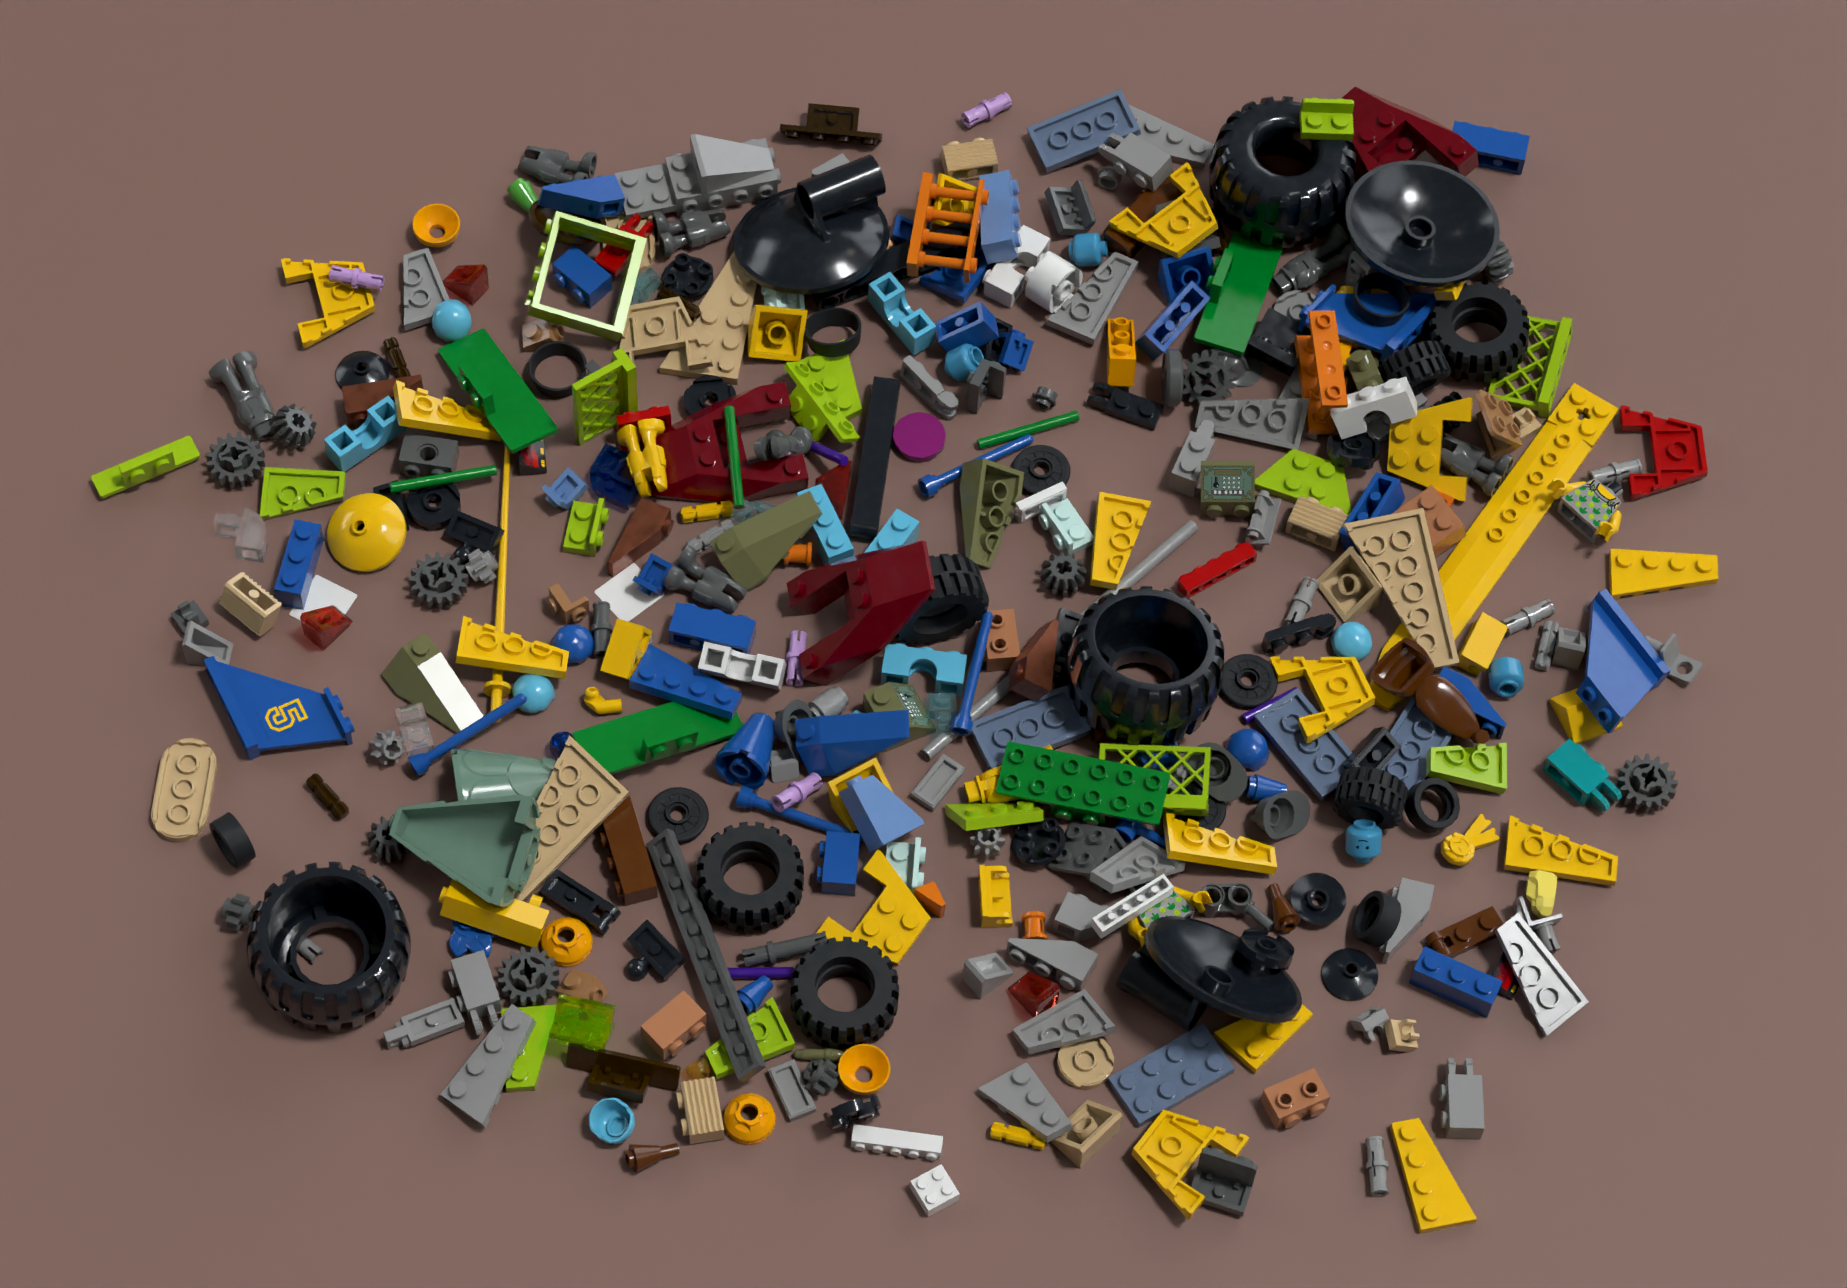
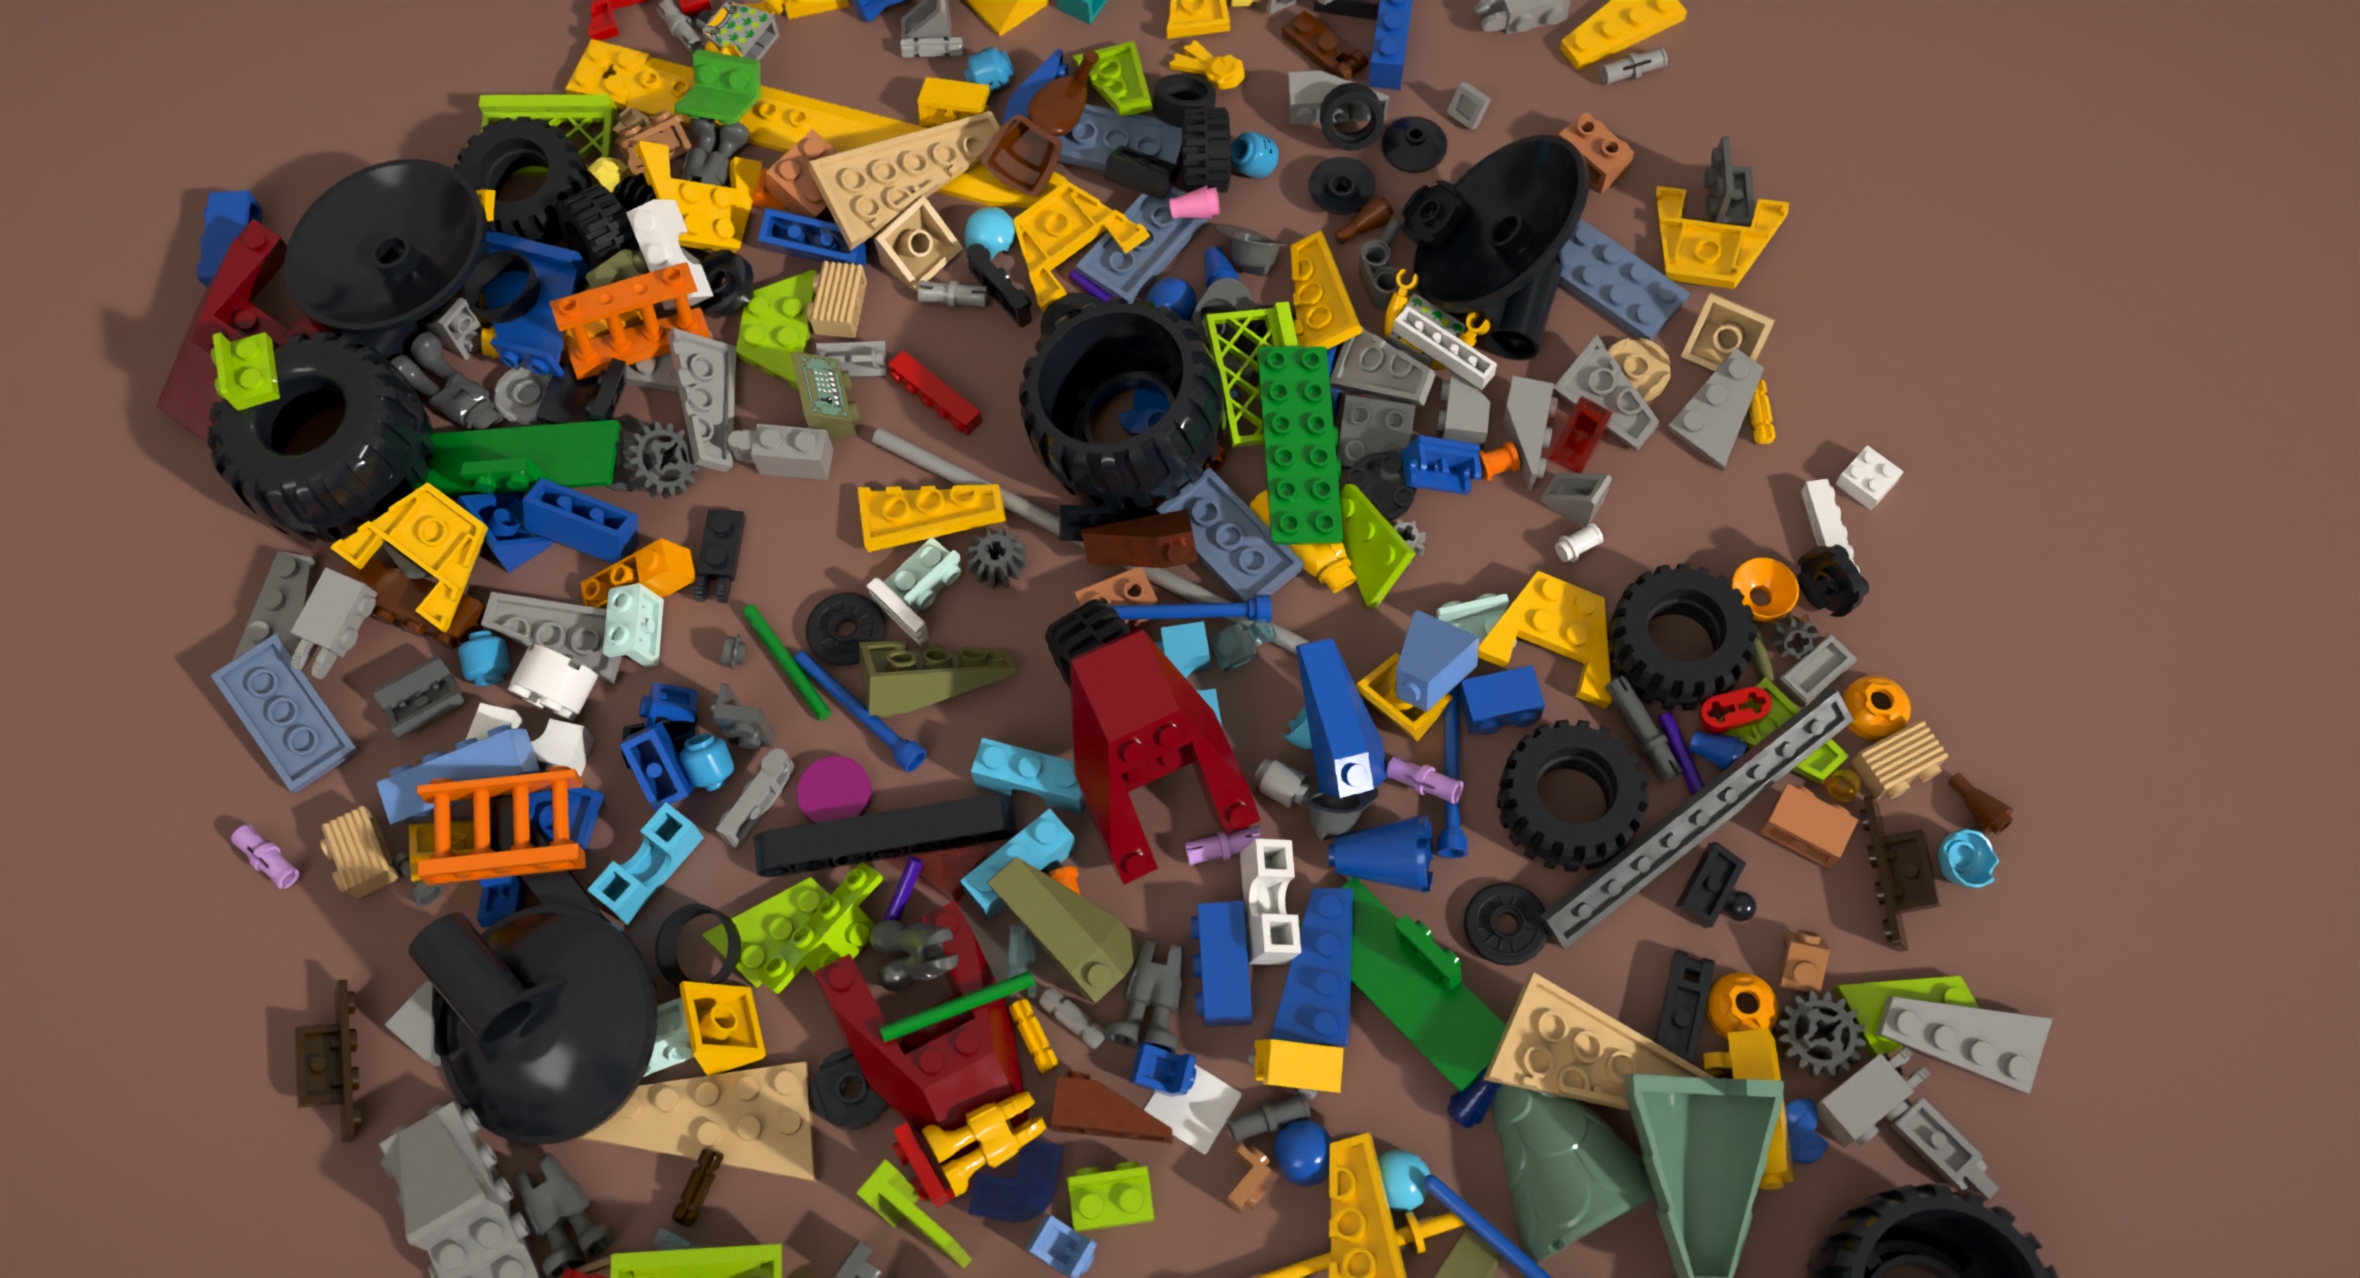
camera: 100 degrees left, 5 degrees up
(583, 1022) = (1868, 934): clear neon green bracket -> none
(599, 704) = (1383, 1080): yellow arm -> none
(628, 855) = (1602, 958): reddish brown brick -> none
(661, 327) = (749, 1197): tan wing -> none
(688, 276) = (643, 1191): black dish -> none
(781, 1009) = (1736, 718): none -> red beam
(783, 766) = (1381, 812): light grey slope -> none
(900, 697) = (1263, 695): olive slope -> none
(931, 898) = (1504, 579): orange slope -> none
(937, 782) = (1345, 626): light grey tile -> none
(946, 956) = (1571, 547): none -> white pin
(994, 896) = (1474, 517): yellow hinge -> none
(1038, 881) = (1441, 464): none -> blue hinge
(1082, 340) = (634, 624): none -> light aqua bracket
(1108, 178) = (355, 666): light grey plate -> none
(1172, 378) = (672, 498): dark grey wheel -> none
(1323, 782) = (1198, 204): none -> bright pink cone
(1401, 1035) = (1474, 73): tan tile -> none
(1467, 386) = (608, 172): none -> light yellow rock
(1522, 474) = (723, 87): none -> bright green bracket
(1528, 616) = (899, 69): light grey pin -> none

